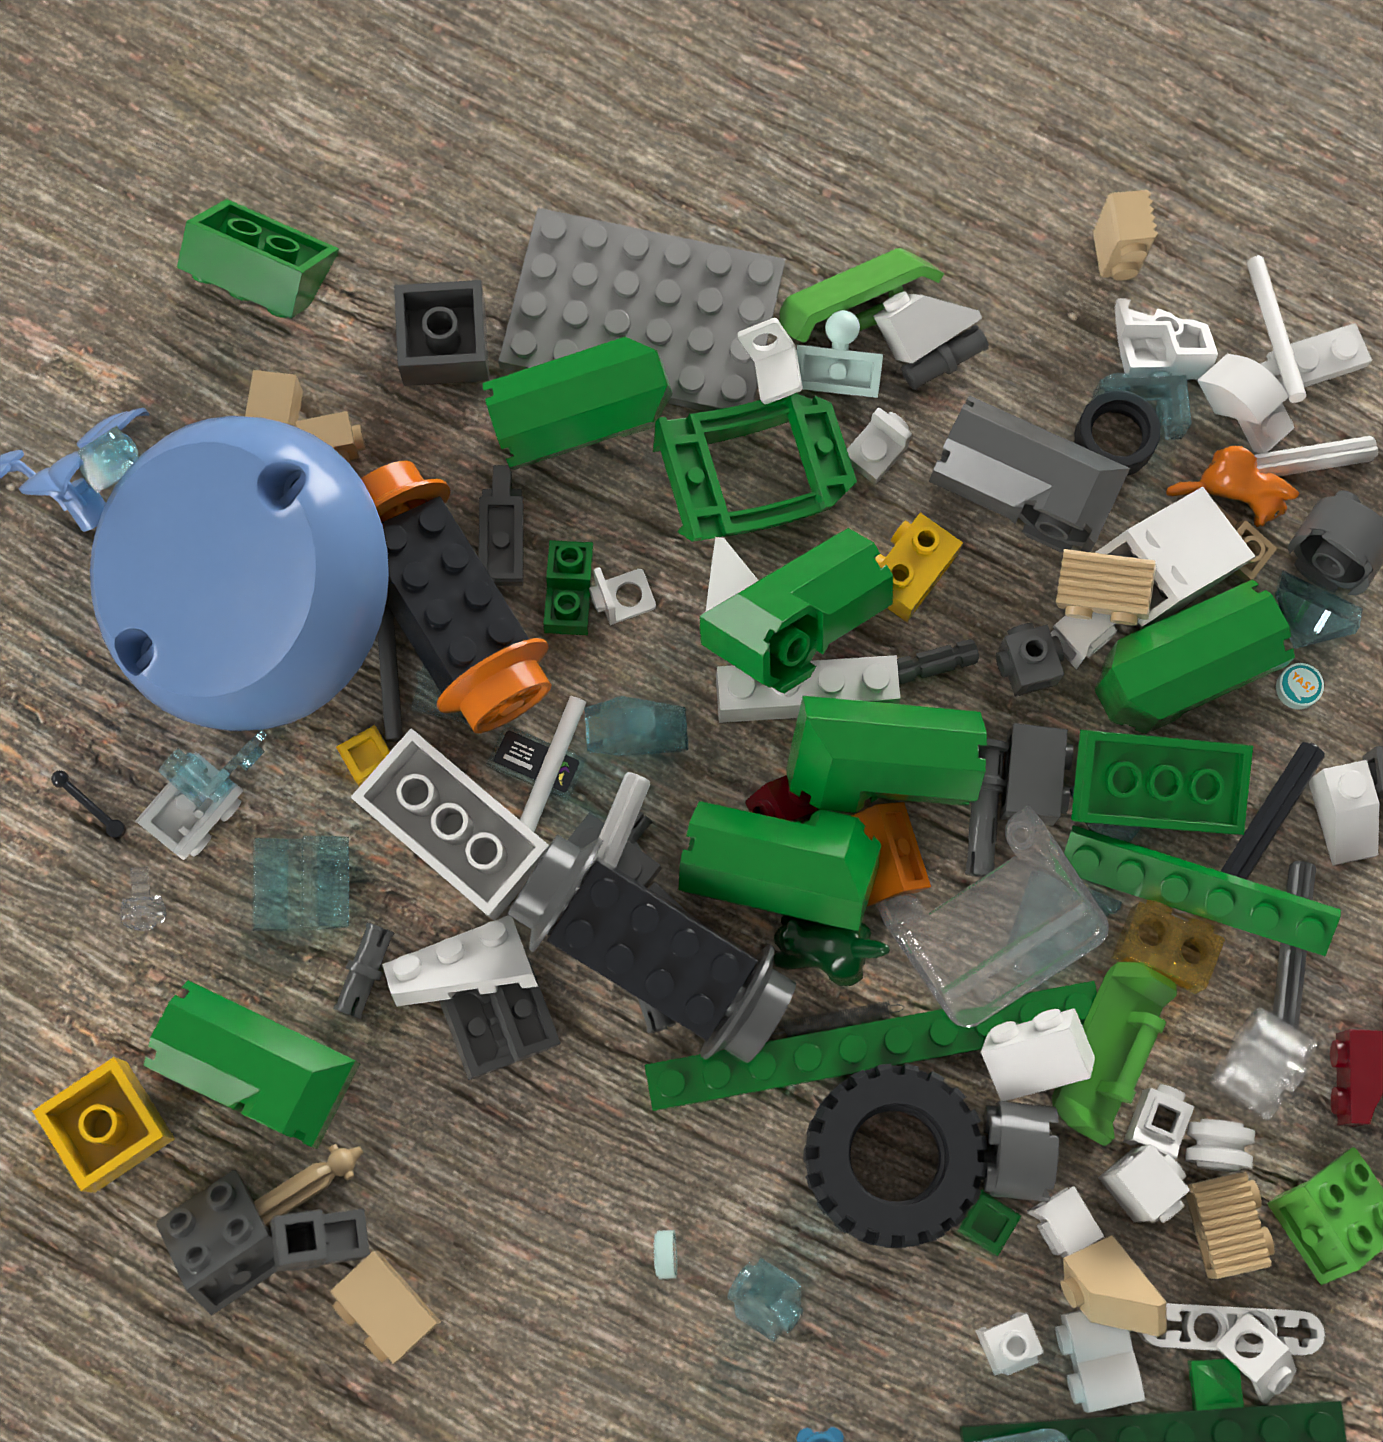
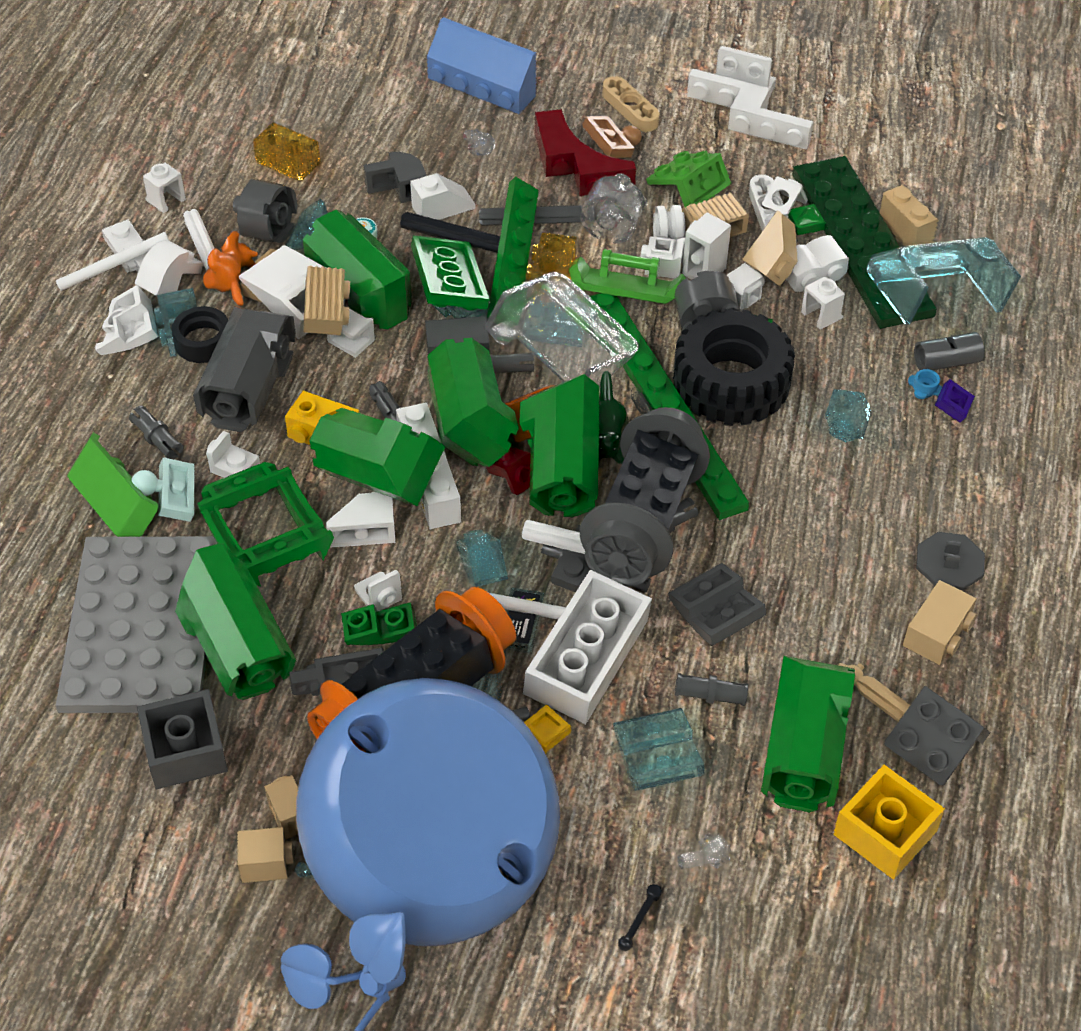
camera: 100 degrees left, 25 degrees down
(107, 458) = (335, 941): clear light blue bracket -> none
(181, 823) = (624, 828): white bracket -> none
(190, 775) = (598, 802): clear light blue bracket -> none
(255, 258) = (125, 901): green slope -> none
(318, 1239) = (915, 665): dark grey brick -> none
(467, 961) = (686, 623): white wing -> none
(497, 1369) = (950, 559): none -> dark grey piece
(665, 1254) = (840, 476): light aqua tile -> none
(775, 364) = (182, 516): white bracket -> none
(921, 323) = (136, 443): white slope -> none
(1030, 658) = (378, 350): dark grey brick -> none
(1037, 1054) = (646, 301): white brick -> none
(1124, 234) = (52, 338): tan brick -> none

